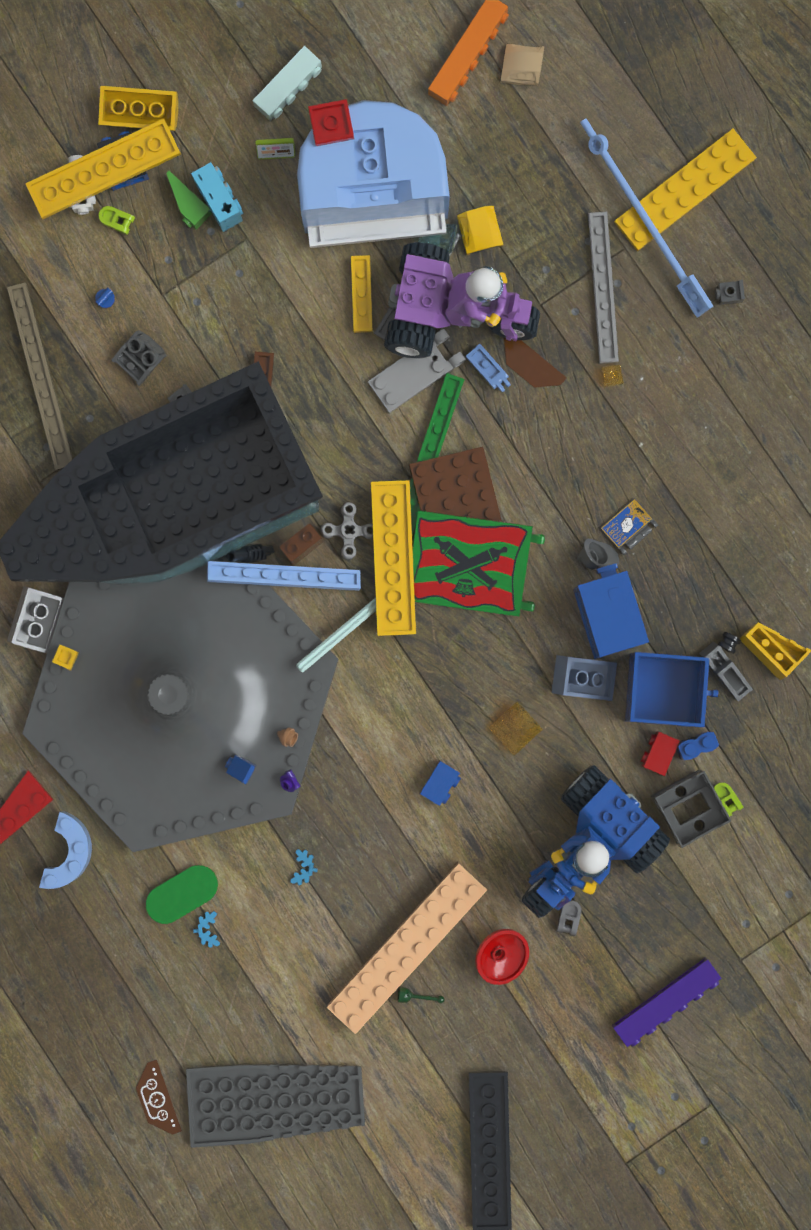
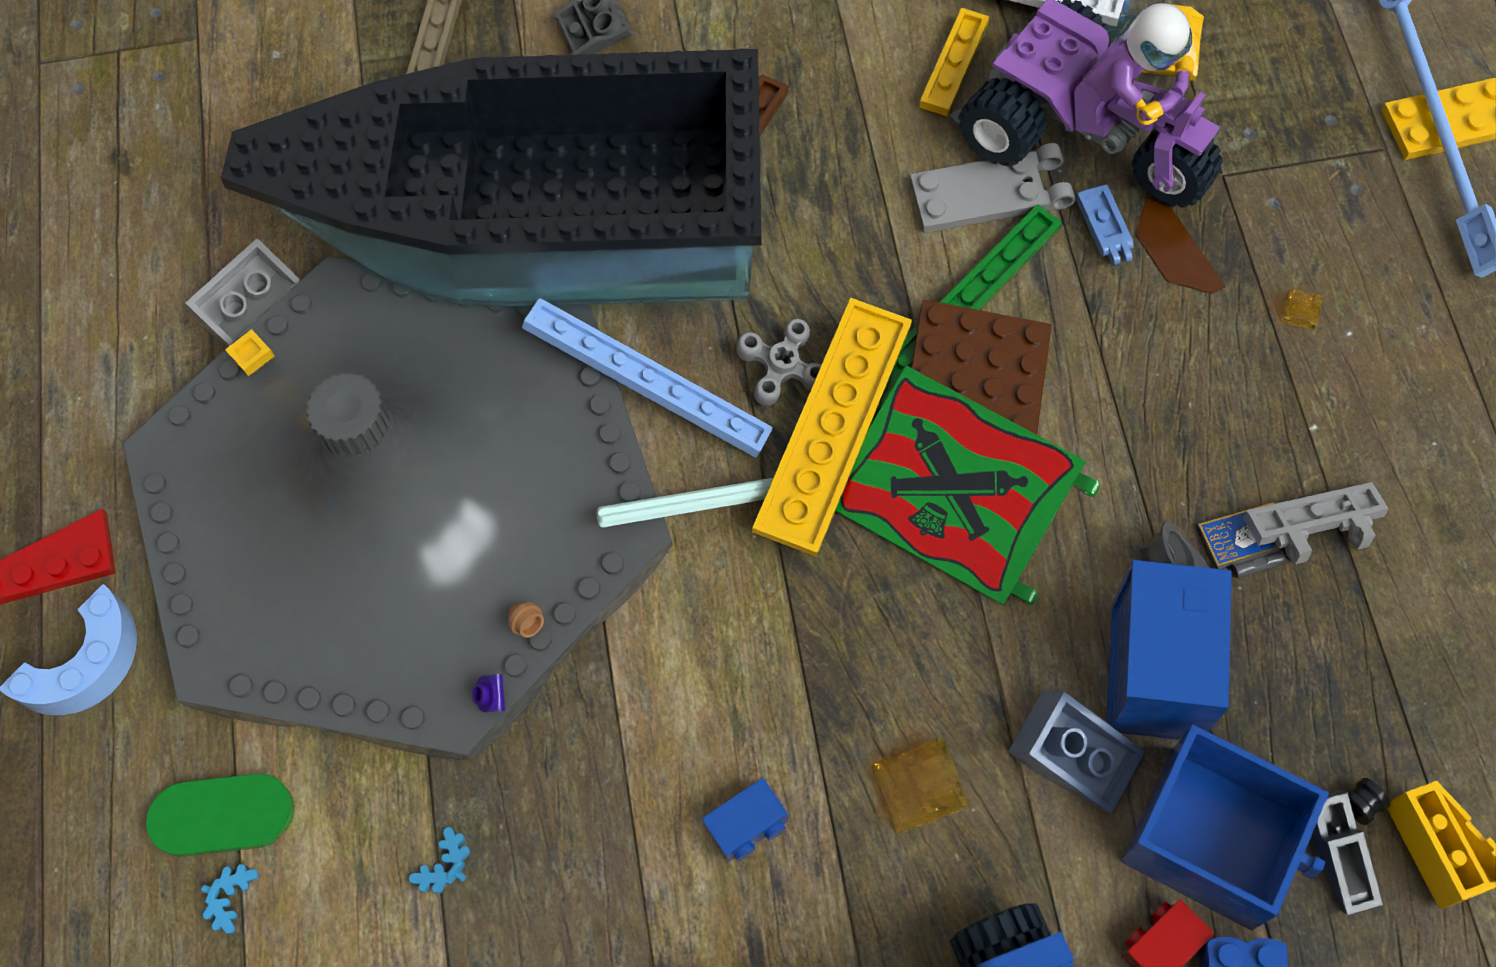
camera: 30 degrees right, 20 degrees down
(240, 768) = (420, 633): blue slope -> none
(250, 553) = (613, 325): black hinge -> none
(301, 544) = (699, 343): reddish brown panel -> none
(603, 287) = (1331, 188): light grey tile -> none
(670, 490) = (1294, 520): none -> light grey hinge

